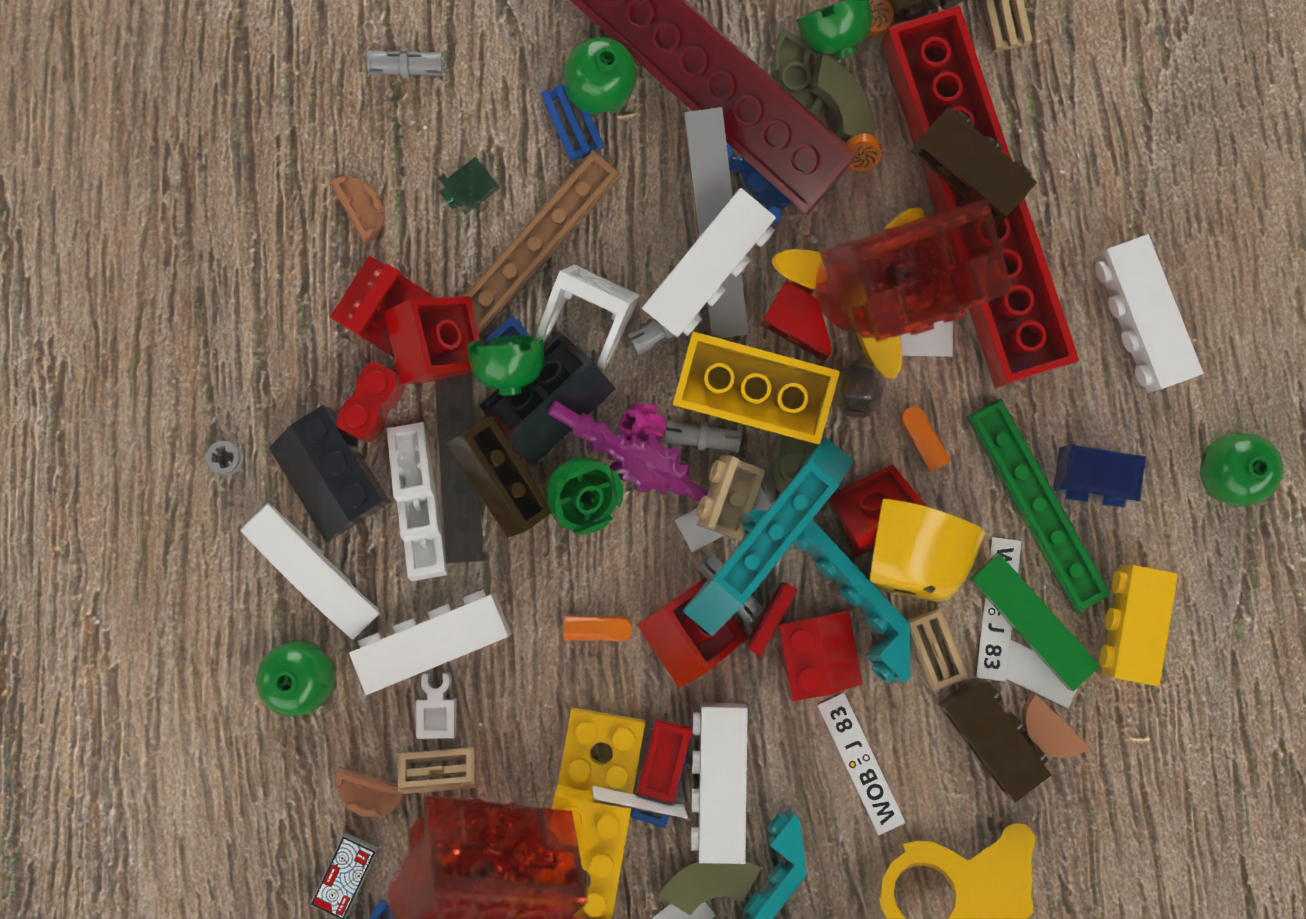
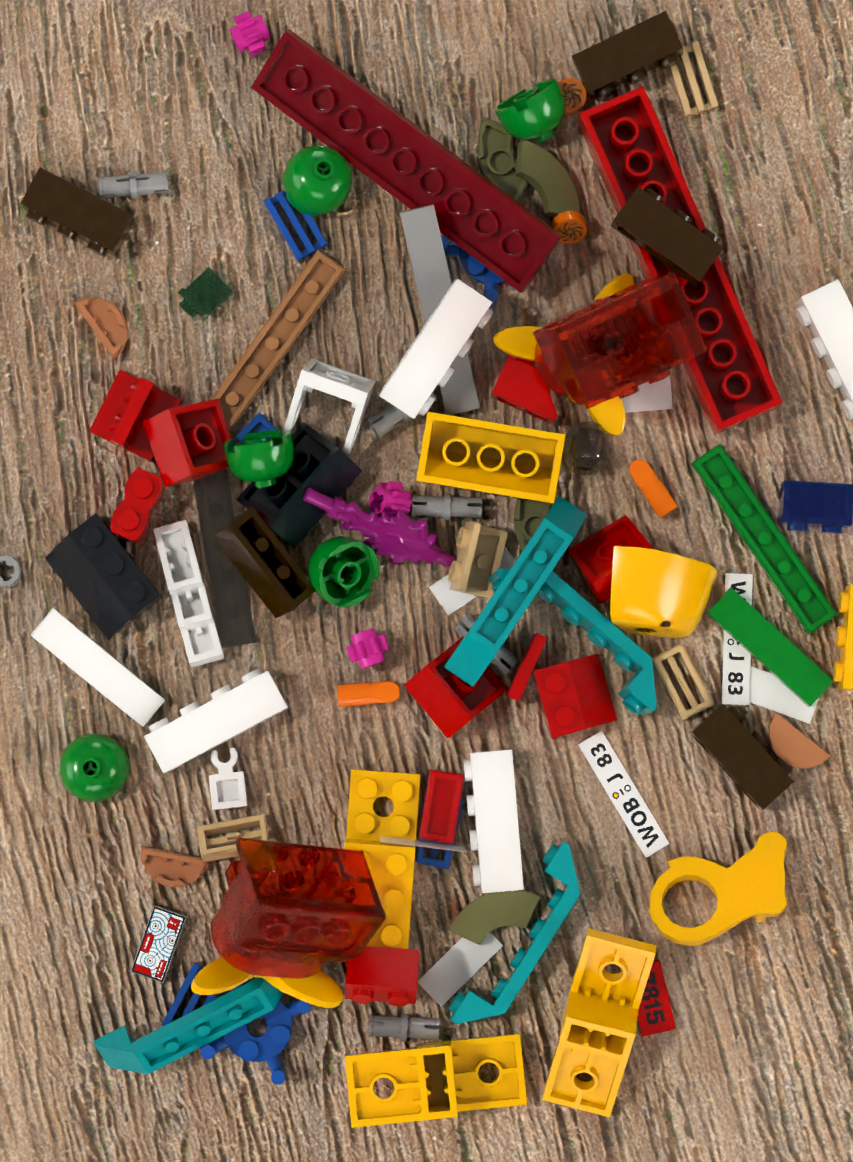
camera: 10 degrees left, 0 degrees up
(341, 85) = (77, 213): none -> dark brown brick
(602, 580) = (367, 648): none -> dark pink gear

